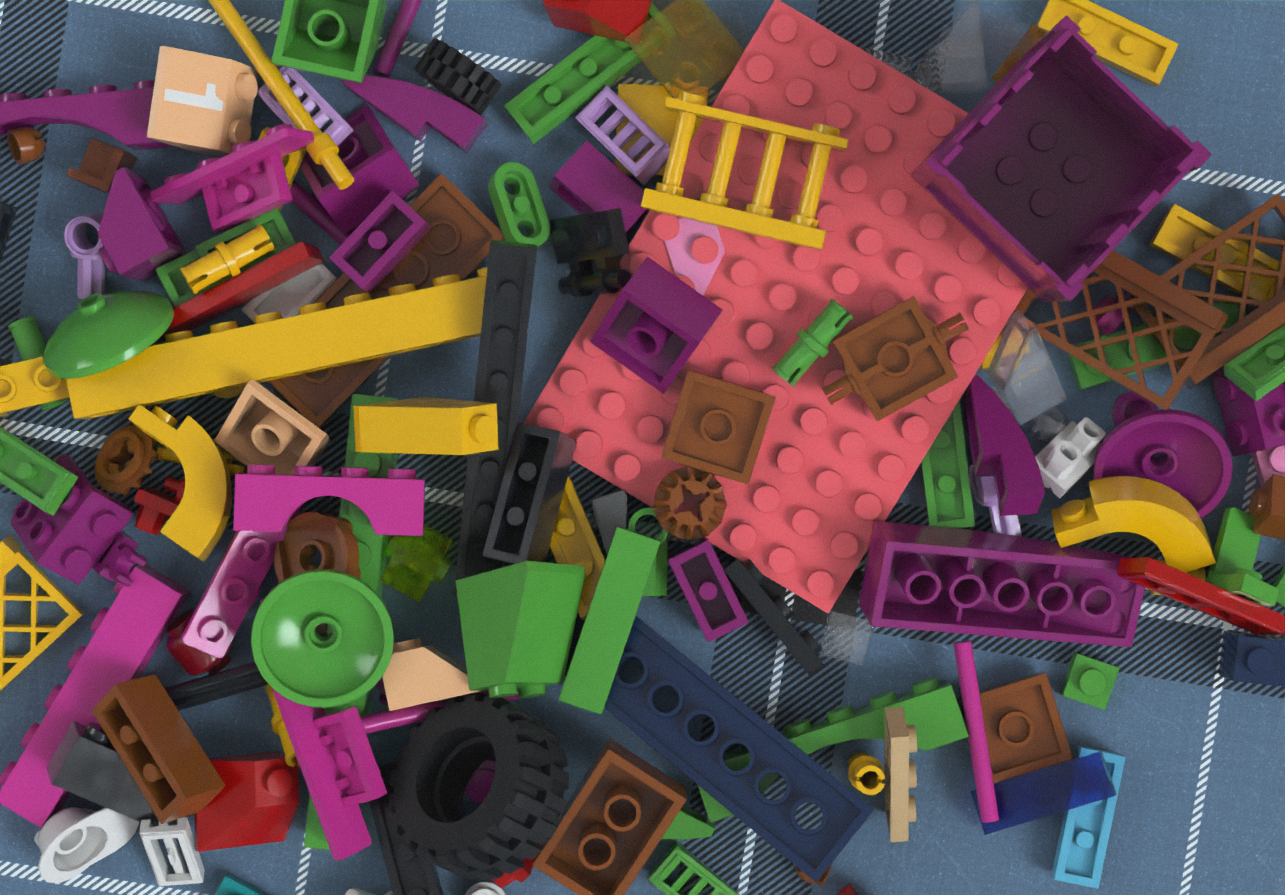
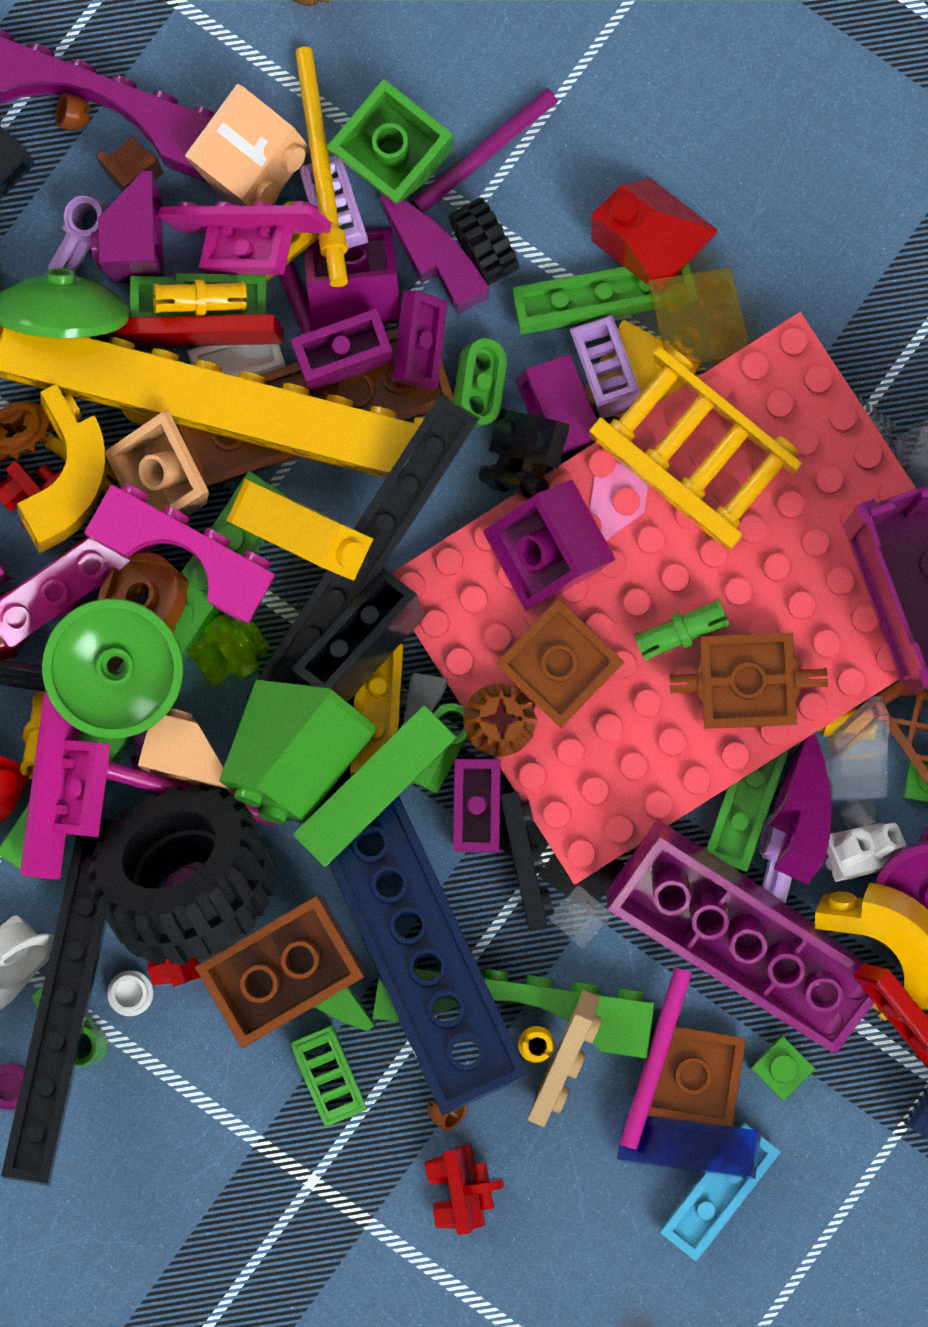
camera: 25 degrees right, 5 degrees down
(445, 197) = (420, 340): none -> magenta plate

